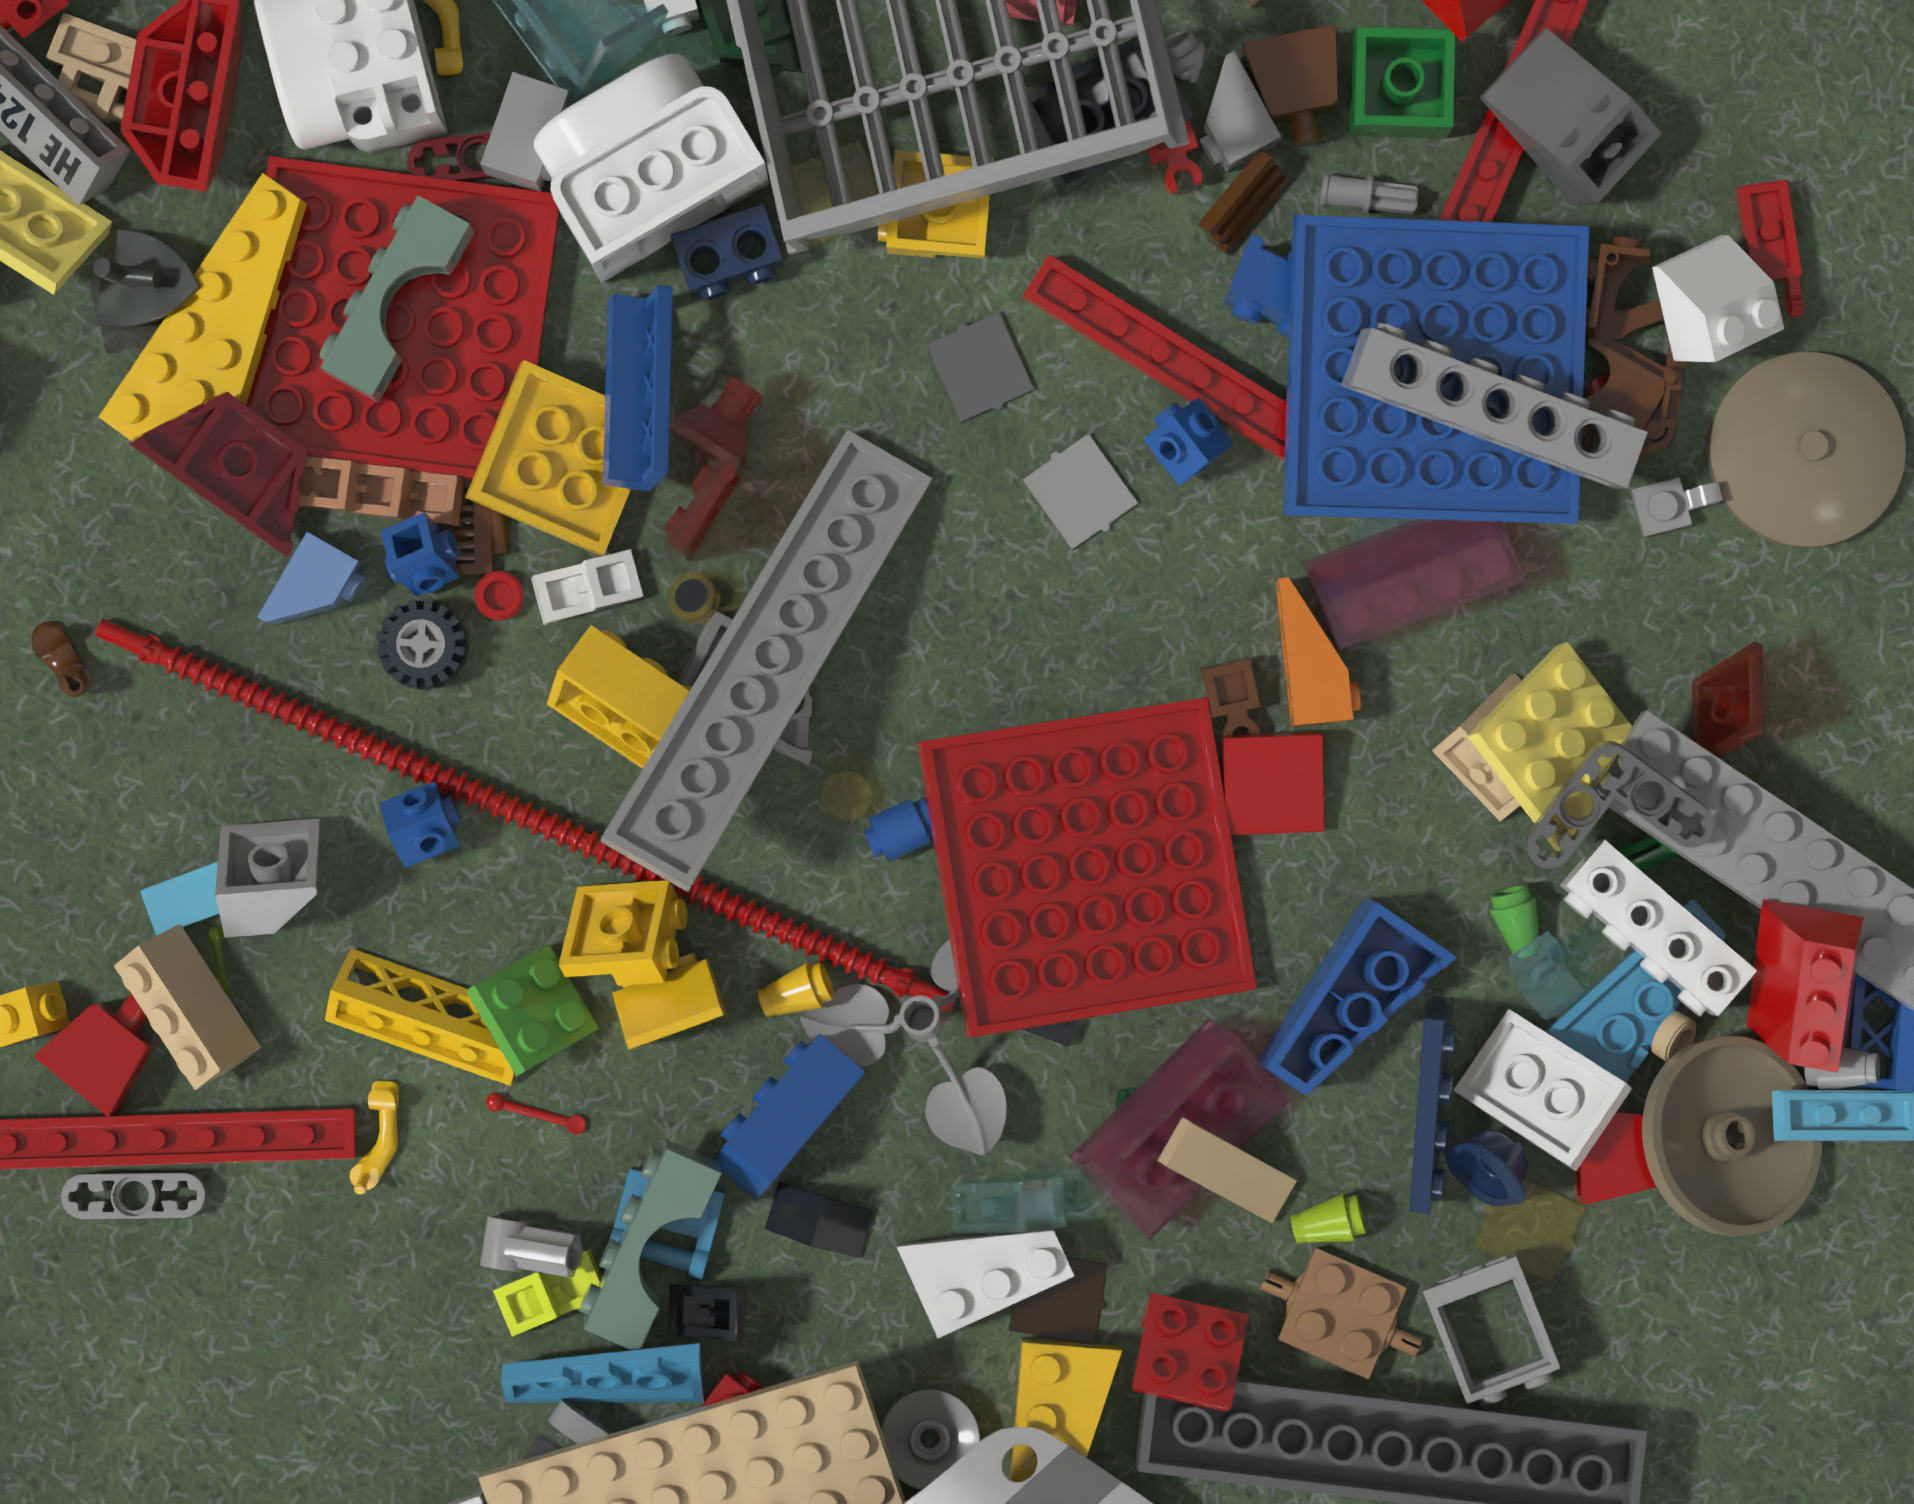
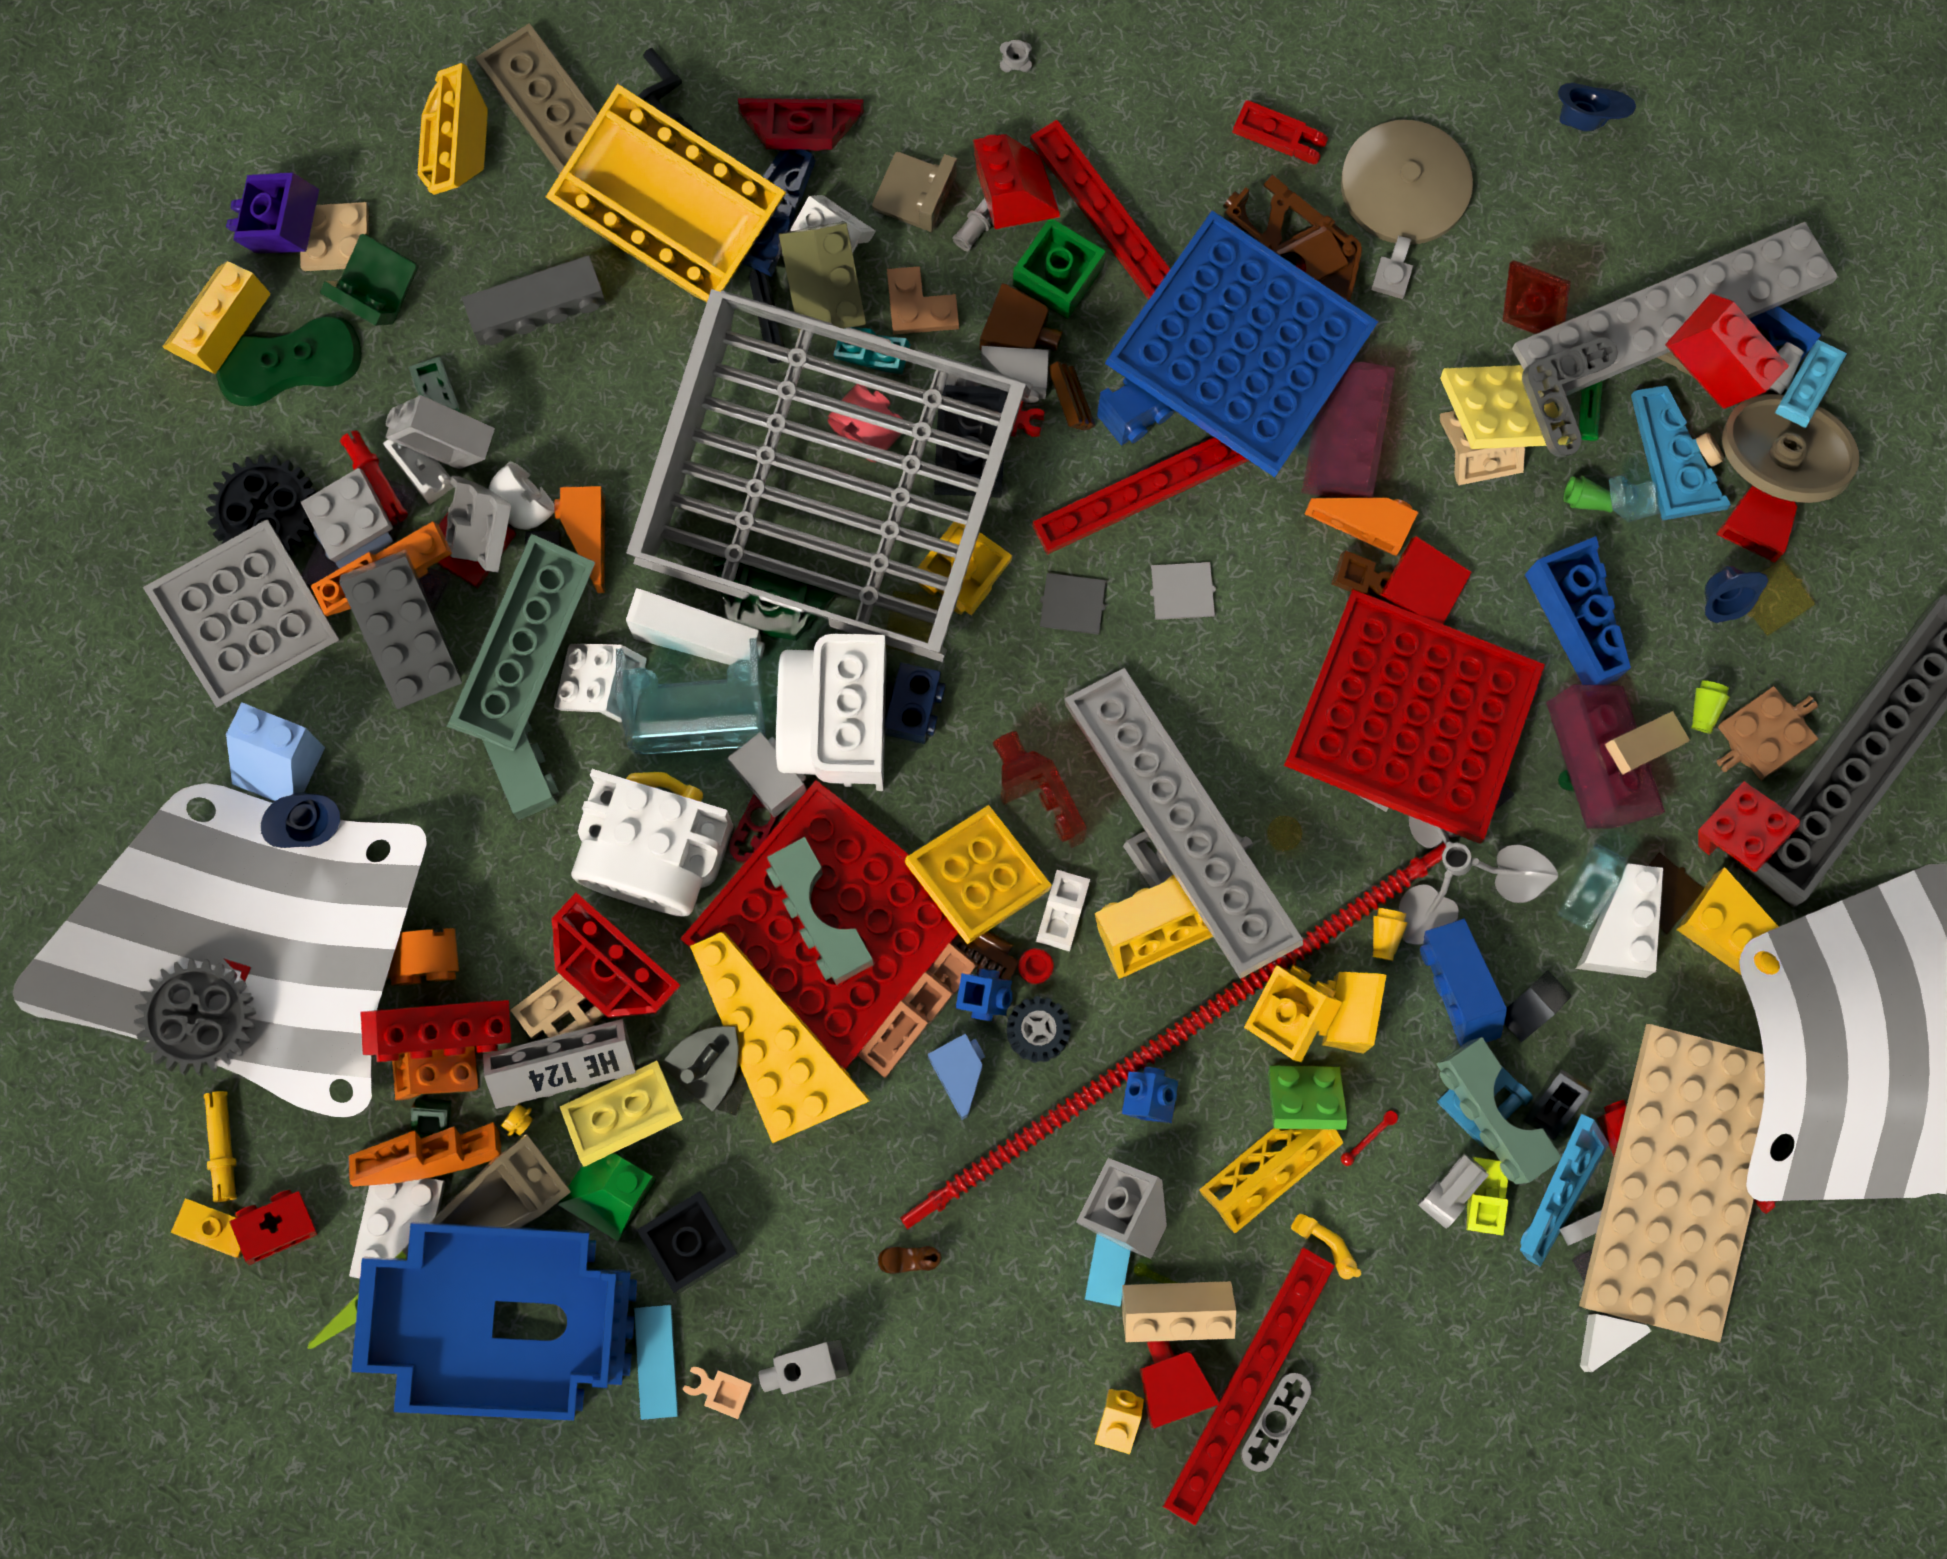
camera: 55 degrees left, 10 degrees down
(233, 464) = (859, 1071): dark red wing -> none
(637, 390) = (964, 803): blue fence -> none
(693, 597) = (1109, 850): tile -> none
(899, 829) = (1325, 812): blue brick -> none
(925, 1410) = (1722, 1004): light grey dish -> none
(1187, 440) = (1193, 508): blue brick -> none
(1368, 194) = (1109, 327): light grey axle -> none
(1373, 375) = (1227, 370): light grey brick -> none
(1433, 1092) = (1674, 605): dark blue wing -> none
(1473, 1280) = (1793, 644): light grey window -> none
(1542, 1089) = (1702, 536): white plate -> none
(1570, 118) = (1141, 188): dark grey slope -> none
(1657, 928) = (1645, 416): white brick -> none
(1715, 301) = (1297, 172): white slope -> none

